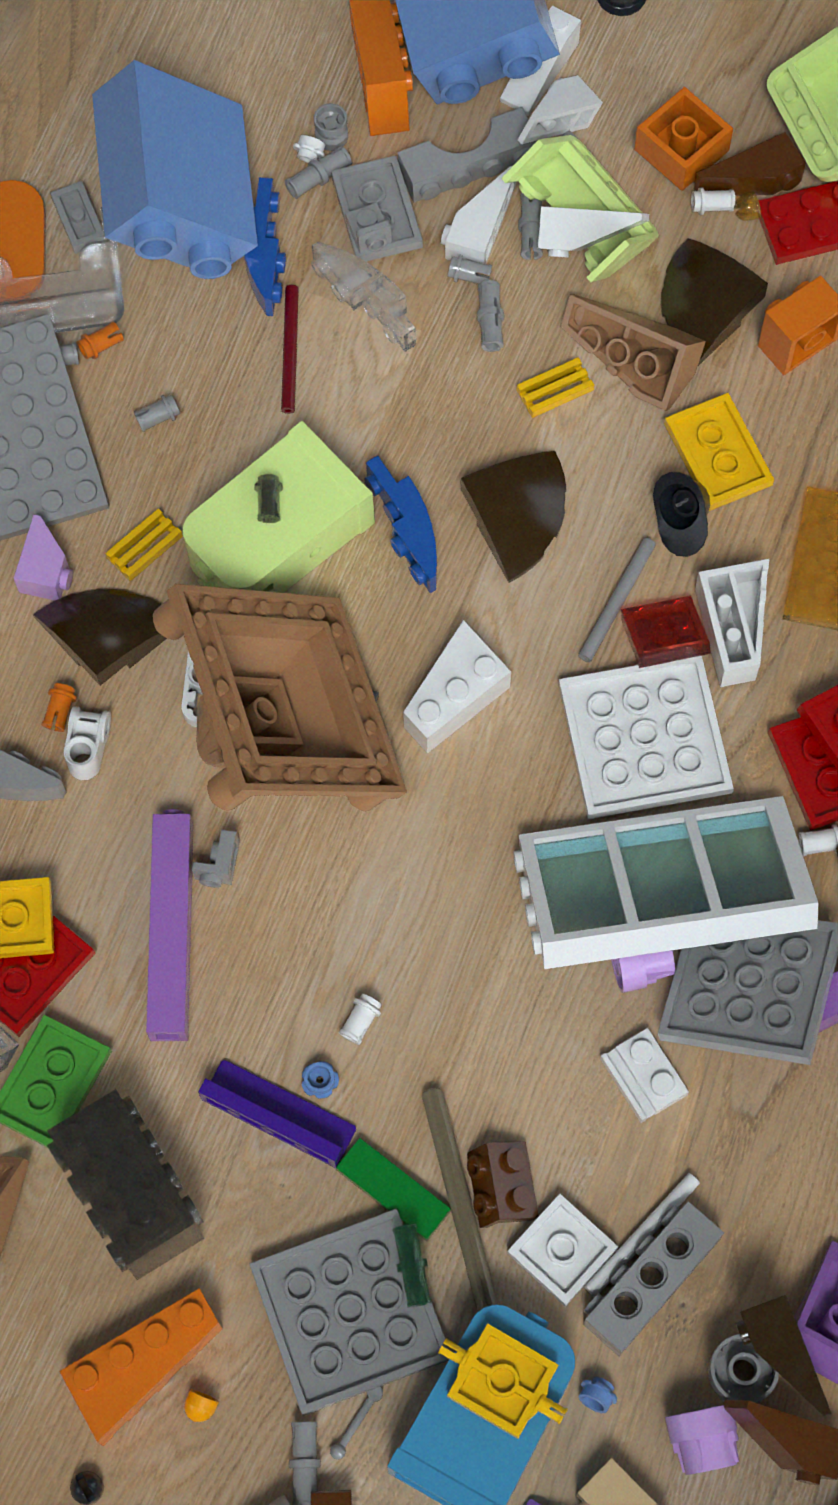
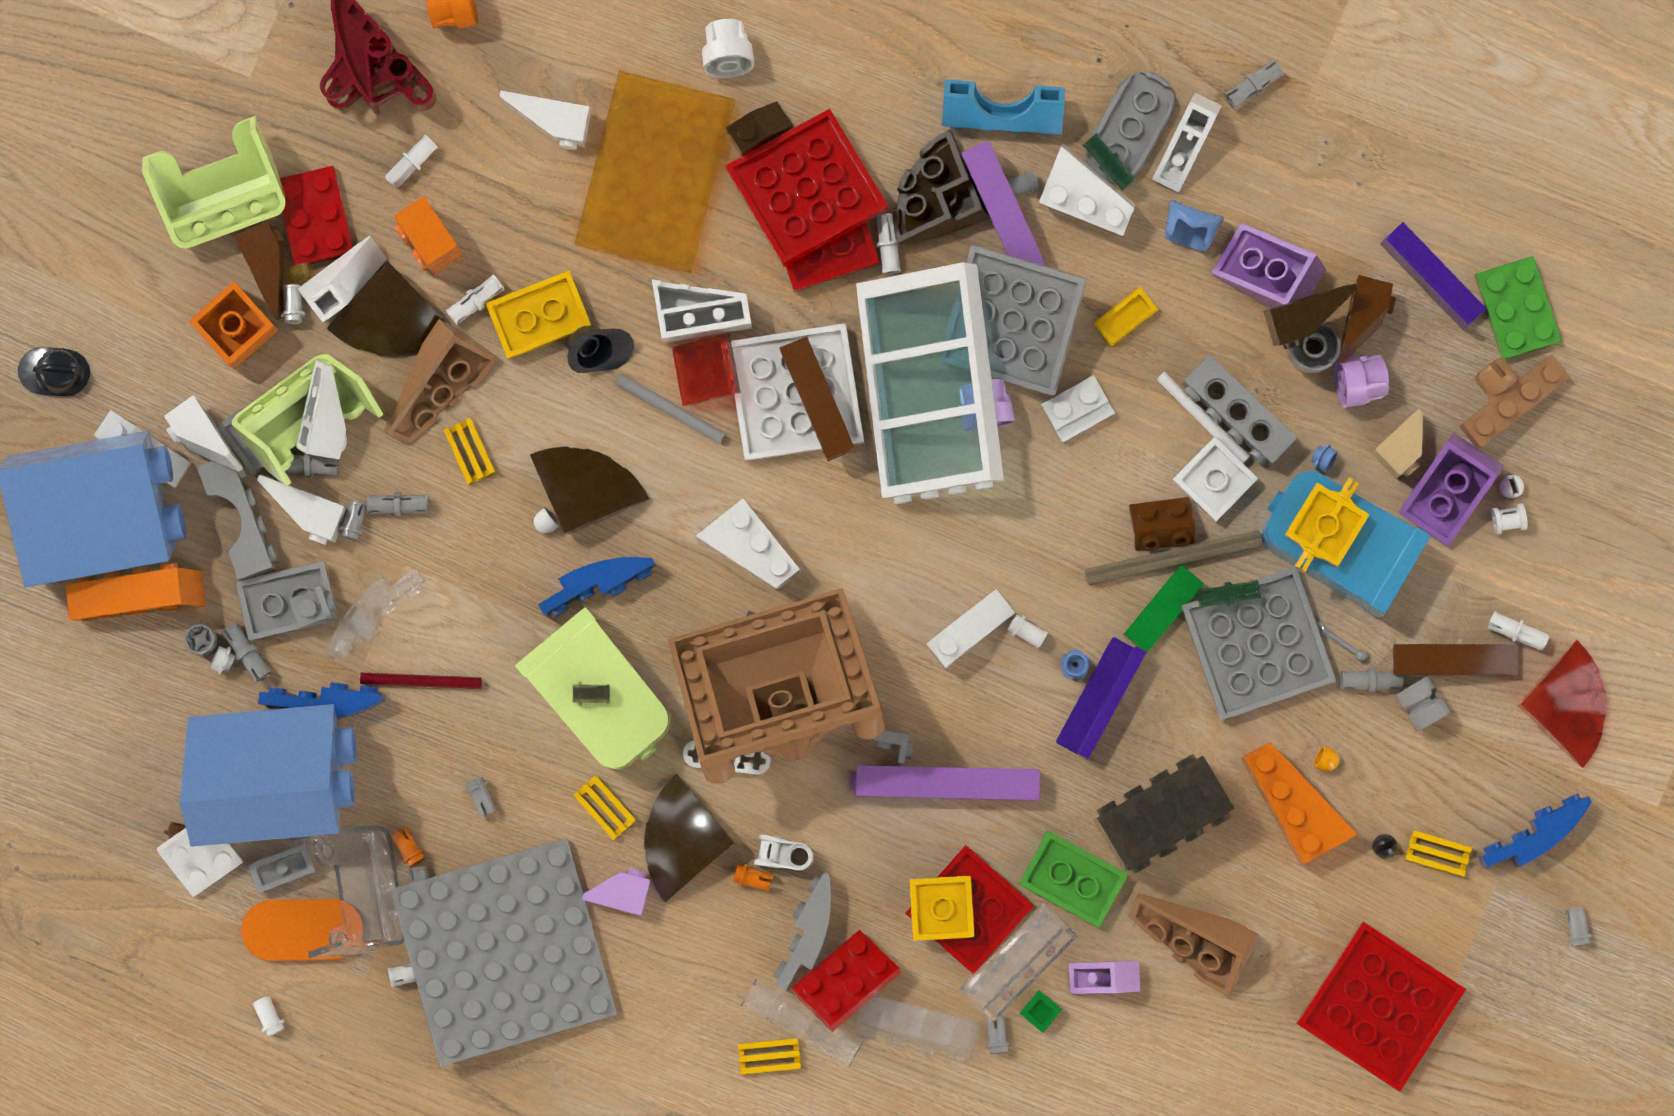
camera: 85 degrees left, 15 degrees up
(77, 137) = (198, 865): none -> white plate
(360, 947) = (969, 629): none -> white slope
(475, 463) = (545, 521): none -> white hinge
(635, 752) = (817, 399): none -> reddish brown slope
(731, 383) = (475, 299): none -> white pin
(745, 243) = (342, 279): none -> white slope
(766, 1132) = (1125, 317): none -> yellow tile

